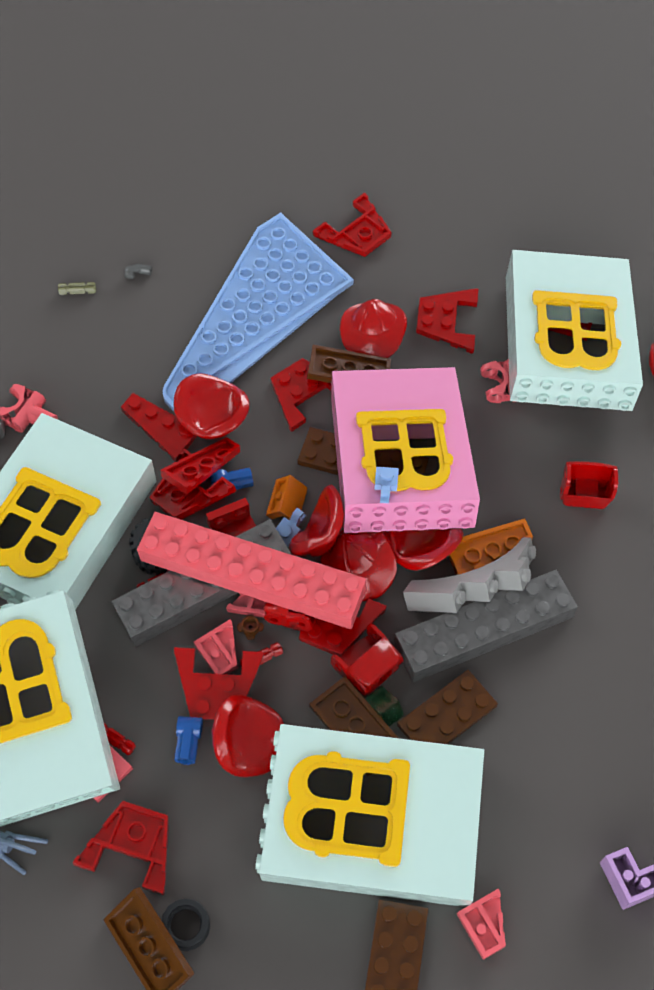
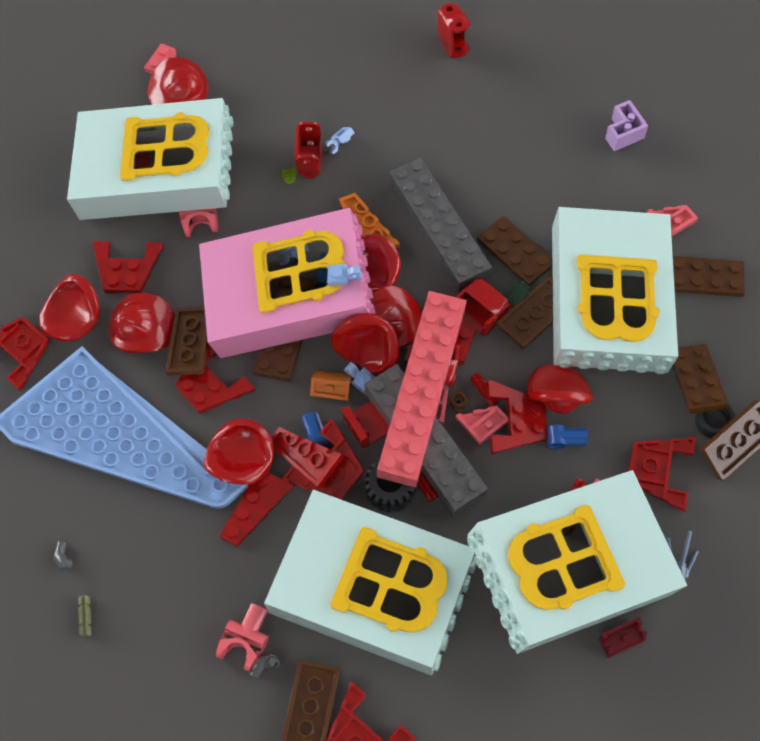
camera: 90 degrees left, 5 degrees up
(241, 910) = (699, 380): none -> reddish brown plate
(392, 267) = (70, 309): none -> red piece
(481, 584) = (411, 222): light grey arch -> none
(558, 475) = (289, 175): none -> clear neon green hinge
(613, 525) = (340, 137): none -> light blue plate

